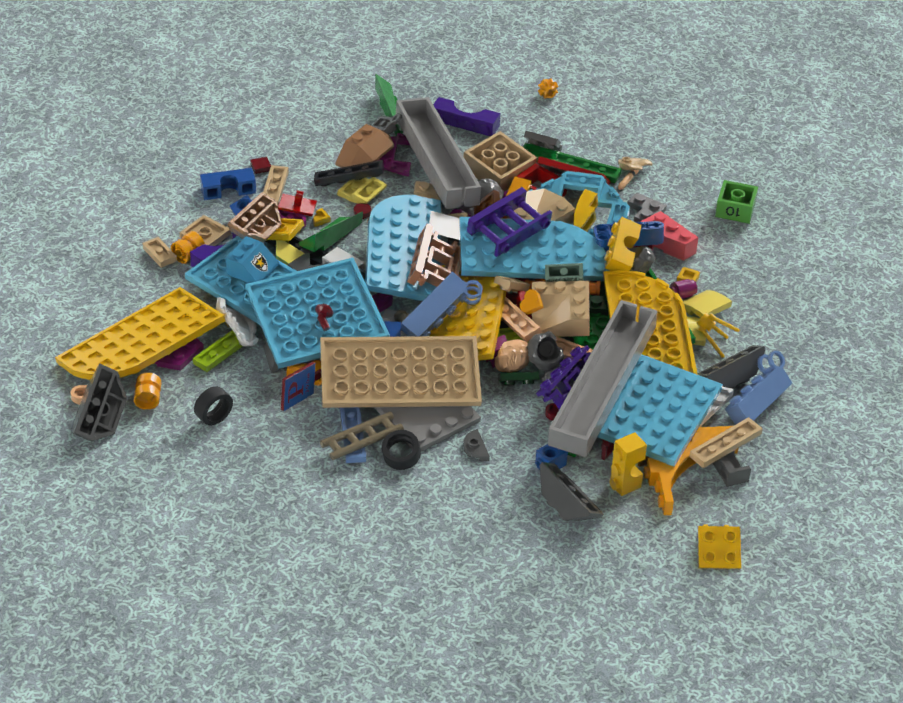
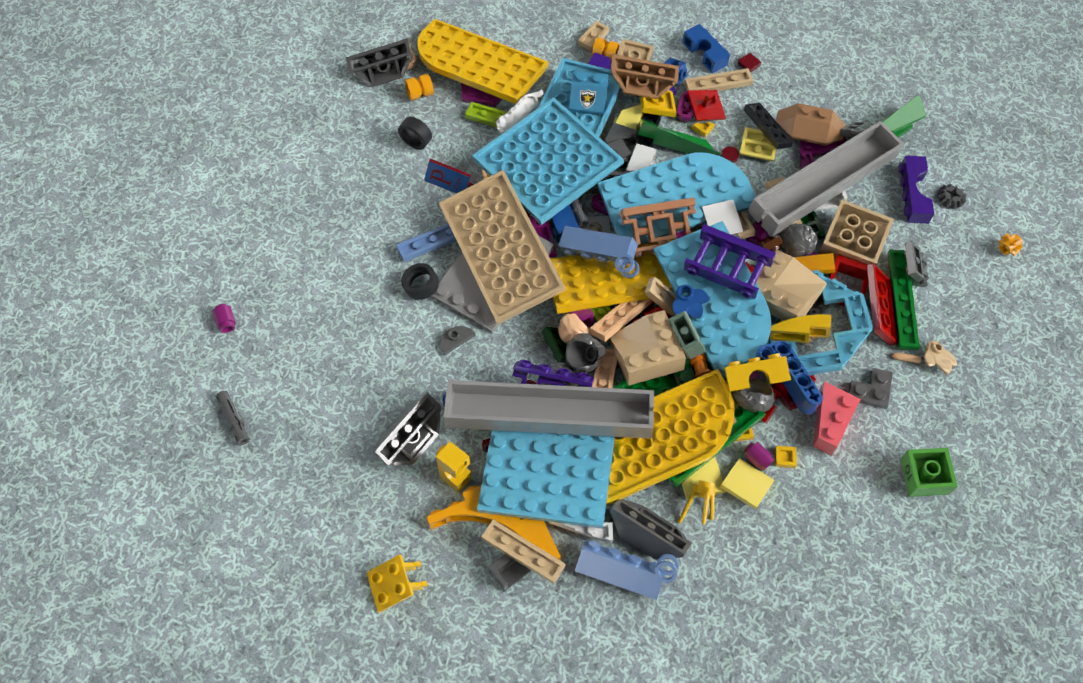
camera: 70 degrees right, 20 degrees up
(324, 311) = (537, 161): dark red plate -> none
(355, 443) = (424, 256): dark tan bar -> none
(367, 612) = (224, 318): none -> magenta brick
(480, 102) = (944, 196): none -> dark grey gear
(493, 629) = (235, 425): none -> dark grey pin
(532, 263) = (692, 303): none -> blue plate
(532, 302) = (635, 318): light orange tile -> none

